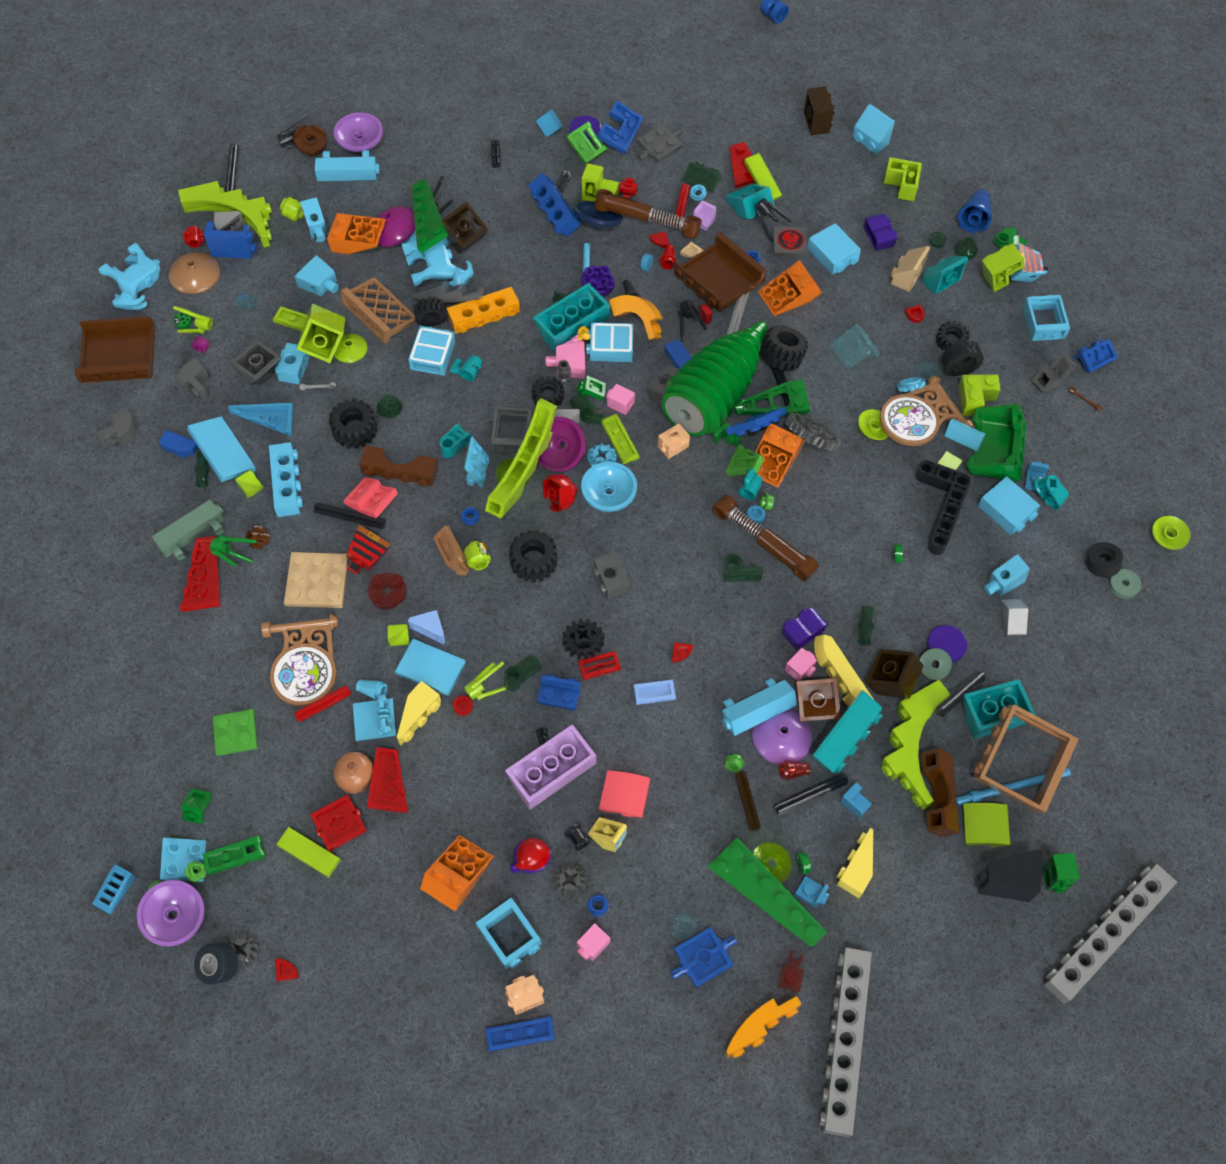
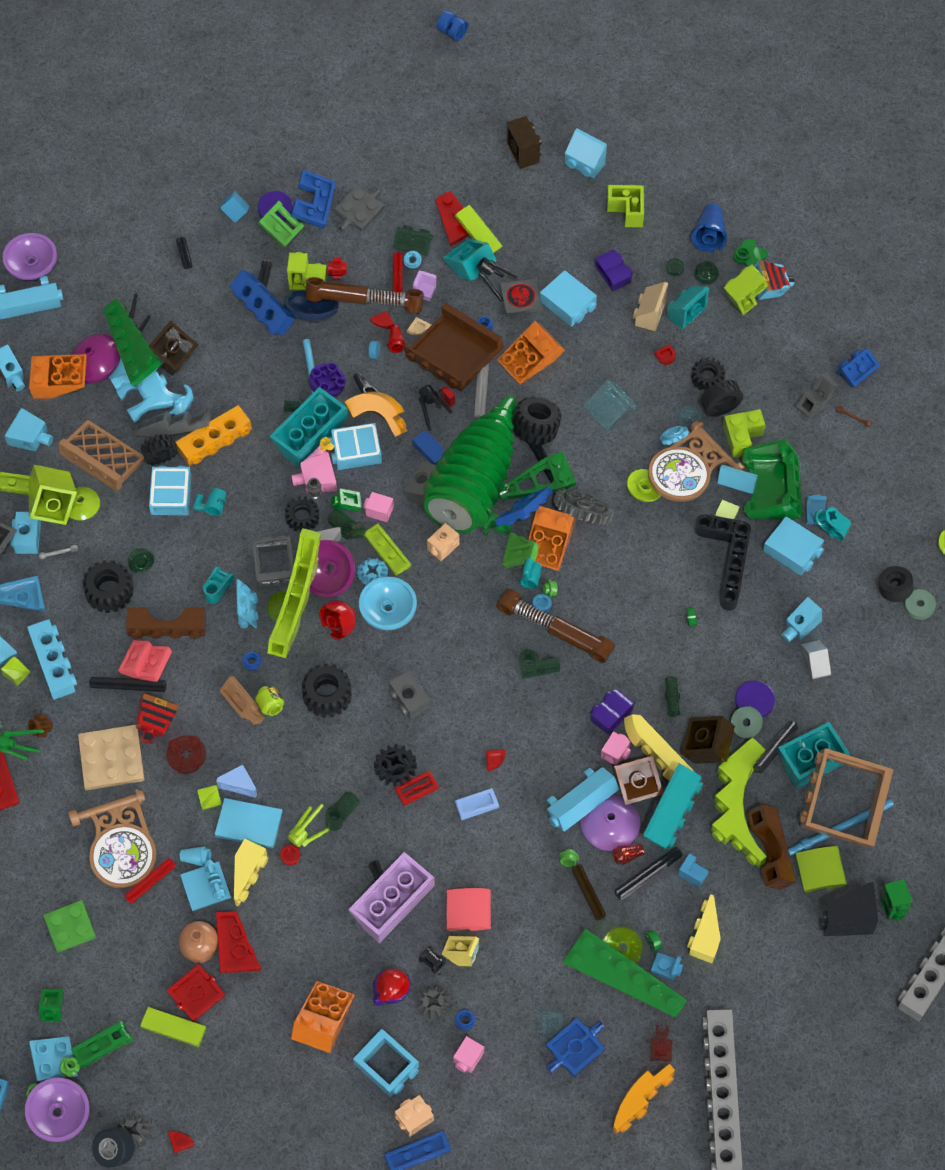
camera: 10 degrees left, 0 degrees up
(559, 692) = (382, 823): blue bracket -> none
(1046, 331) = (804, 350): medium azure window -> none

